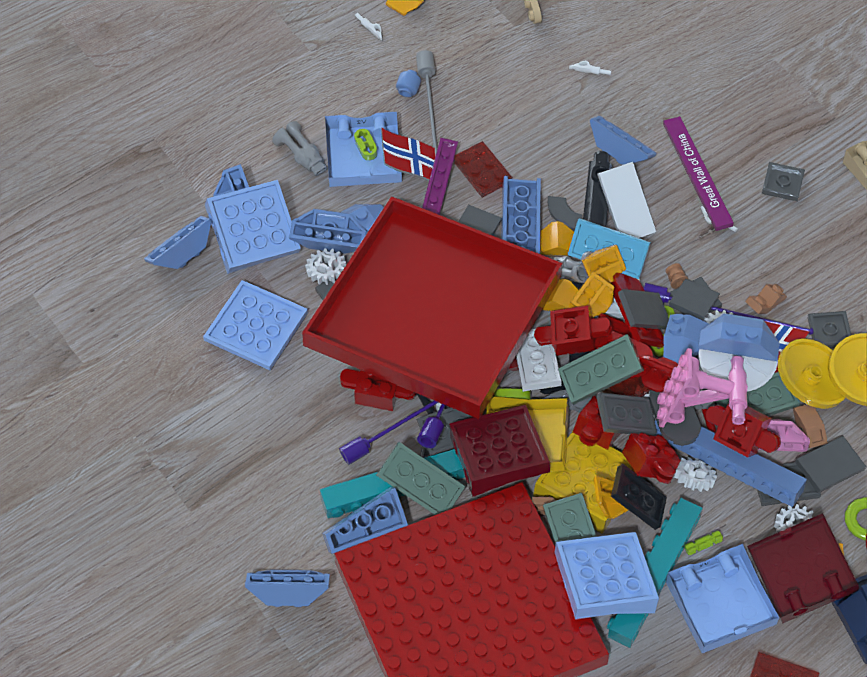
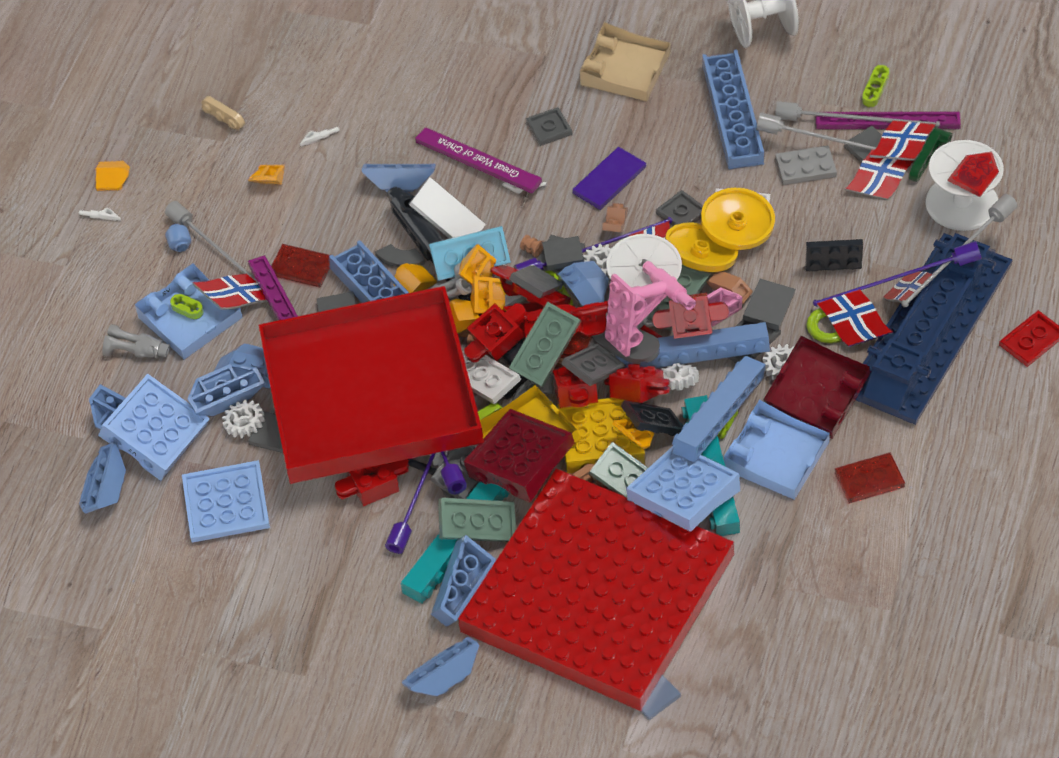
camera: 35 degrees left, 5 degrees down
(523, 76) = (268, 174): none -> light orange slope
(698, 527) = (718, 409): none -> medium blue brick
(740, 337) = (634, 248): medium blue wedge -> none
(793, 260) = (609, 178): none -> dark purple tile

